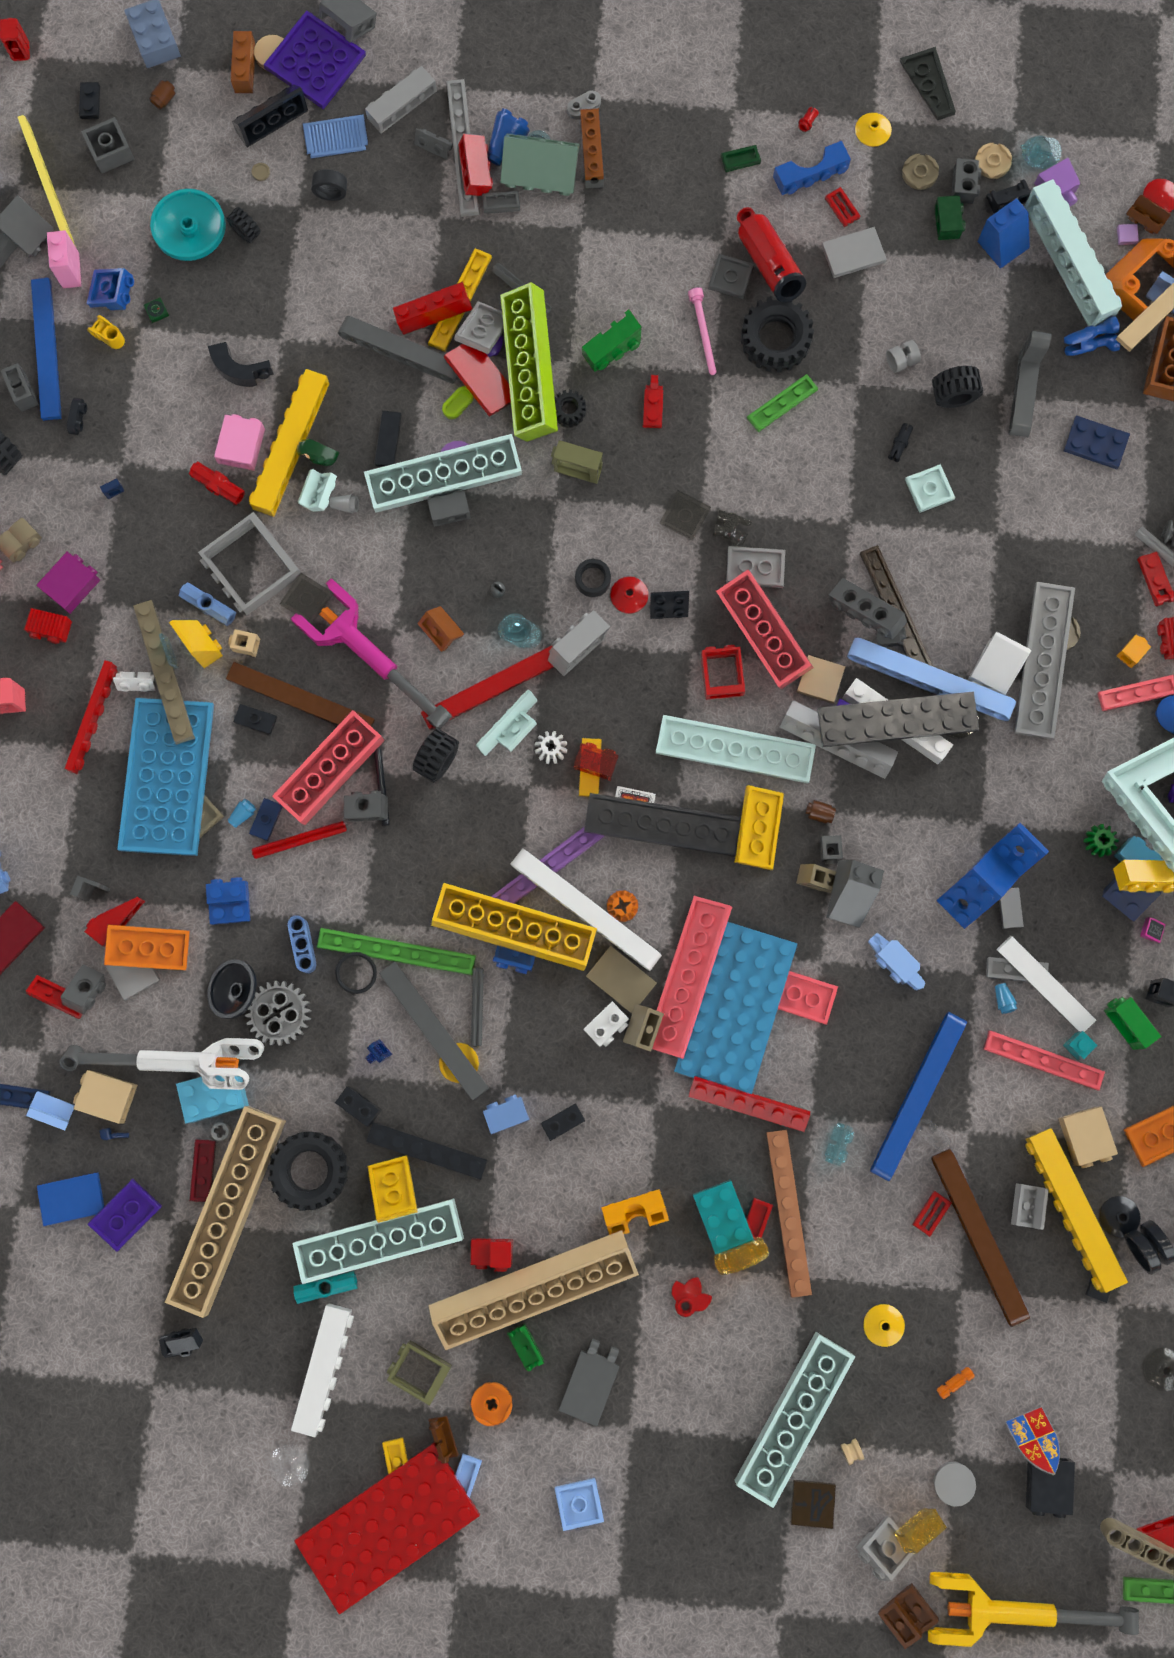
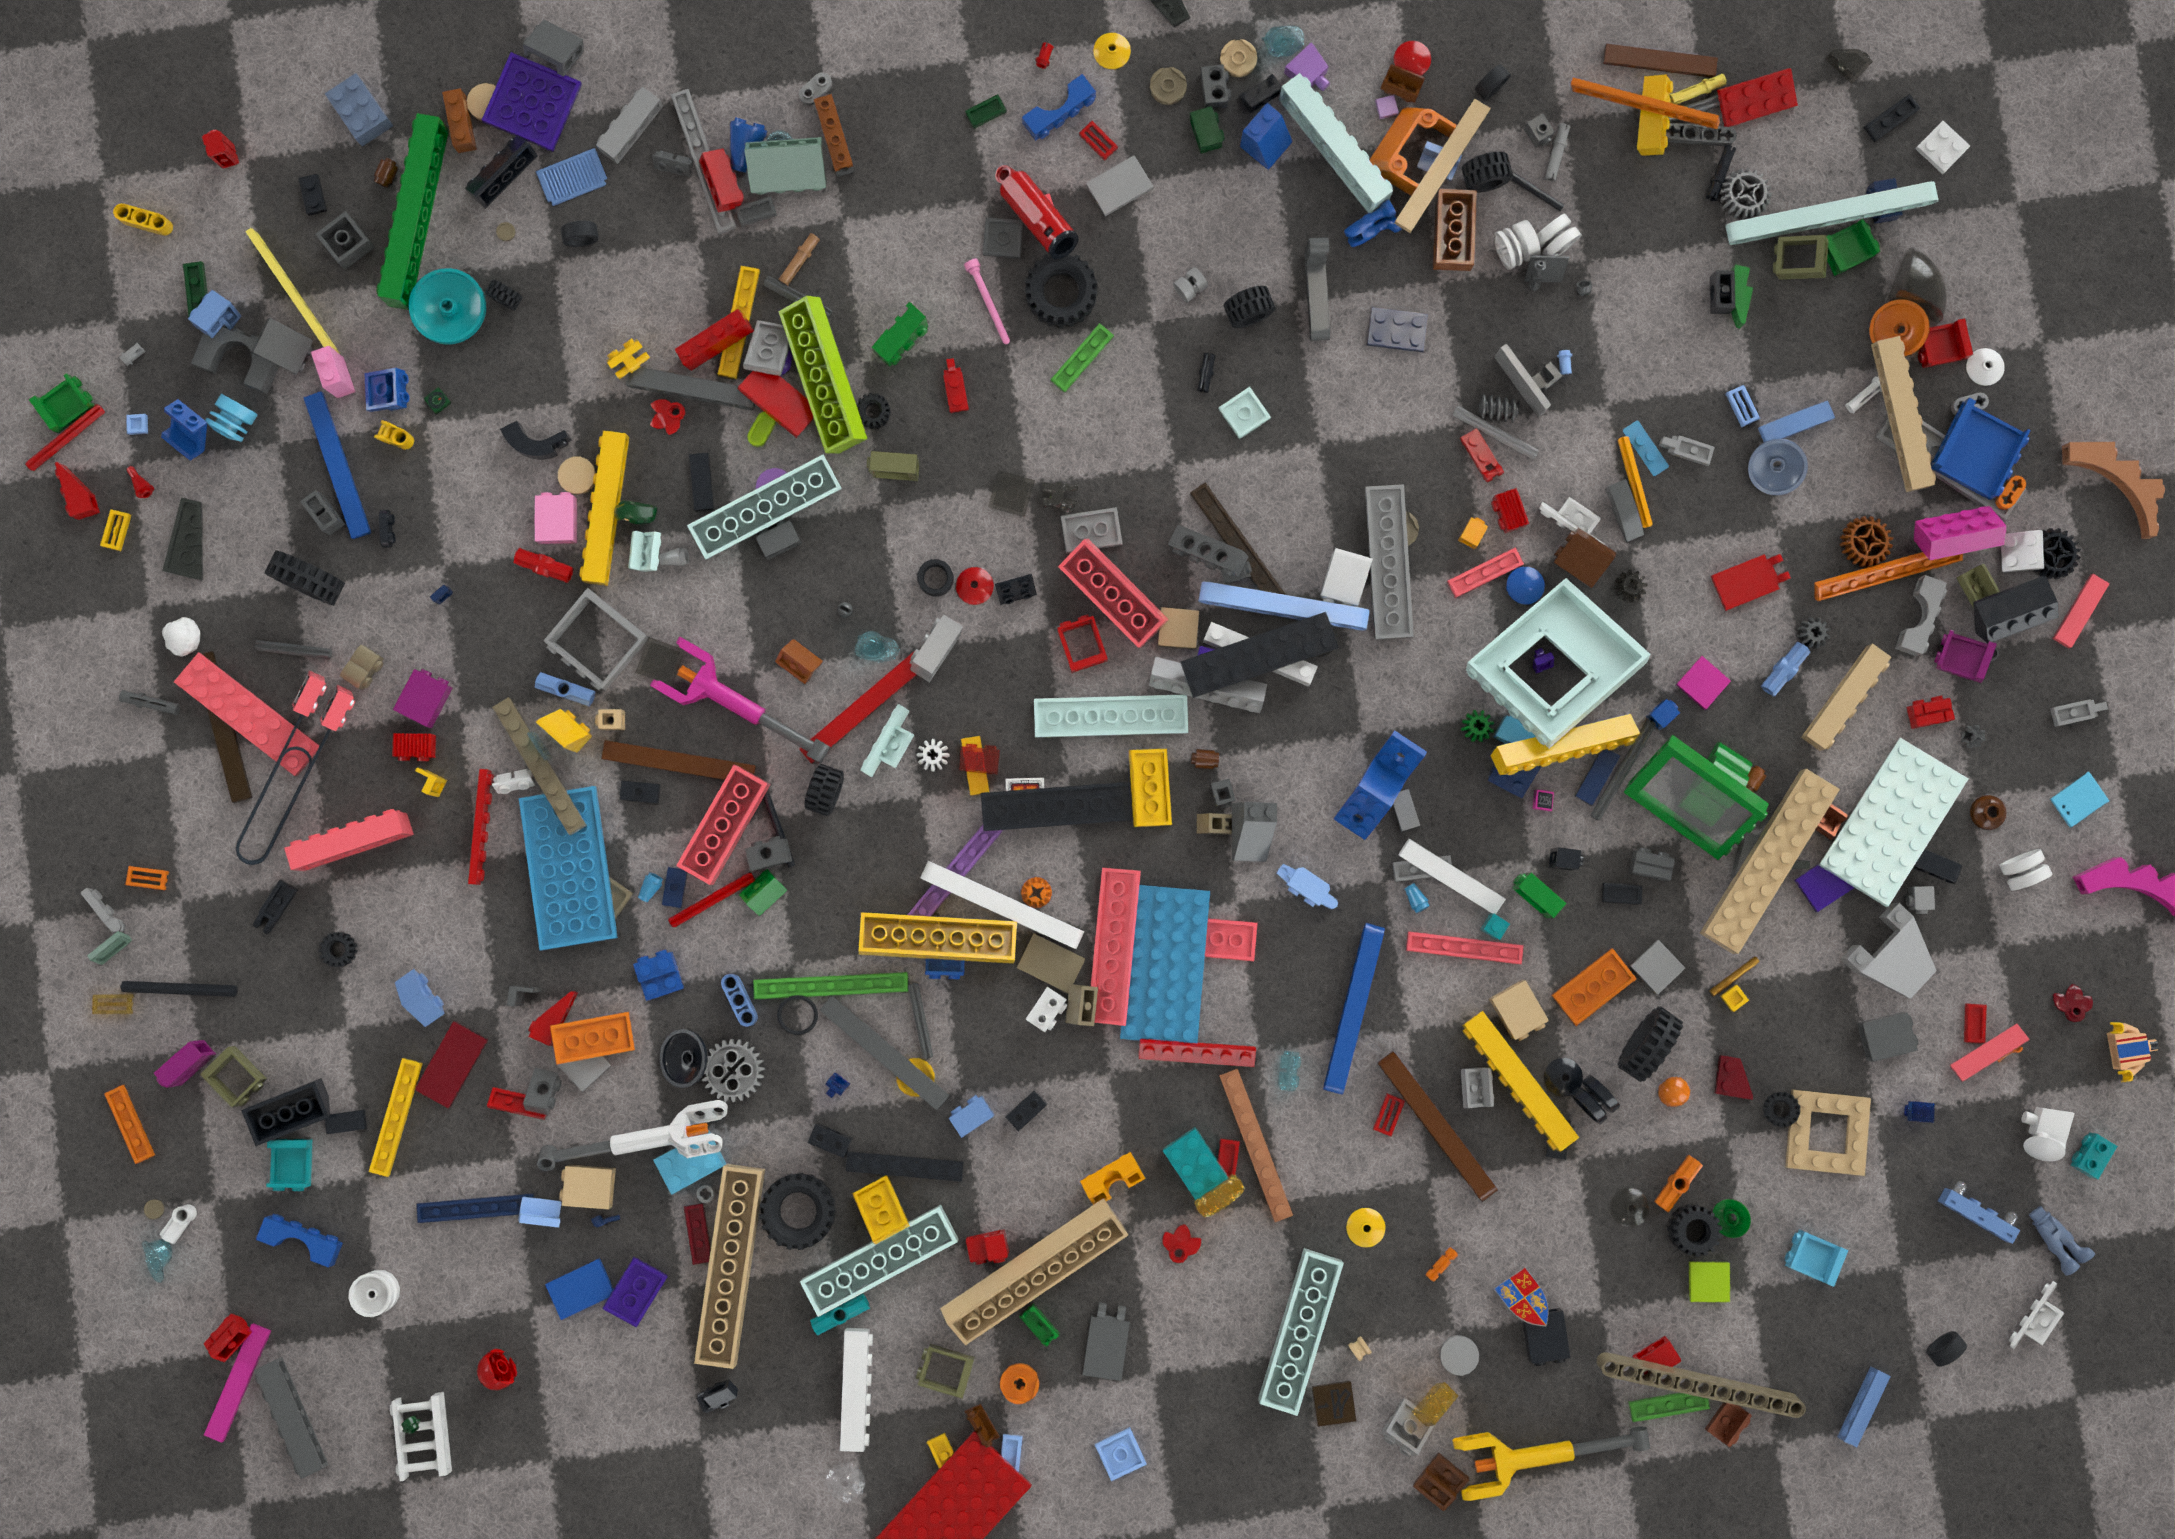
camera: 15 degrees left, 5 degrees up
(55, 664) = (434, 783): none -> yellow panel
(178, 131) = (413, 211): none -> green brick
(270, 407) = (576, 475): none -> tan tile
(345, 305) = (625, 355): none -> yellow plate
(351, 844) = (762, 892): none -> green panel
(368, 370) = (665, 417): none -> red plate
(536, 250) = (803, 253): none -> medium nougat pin

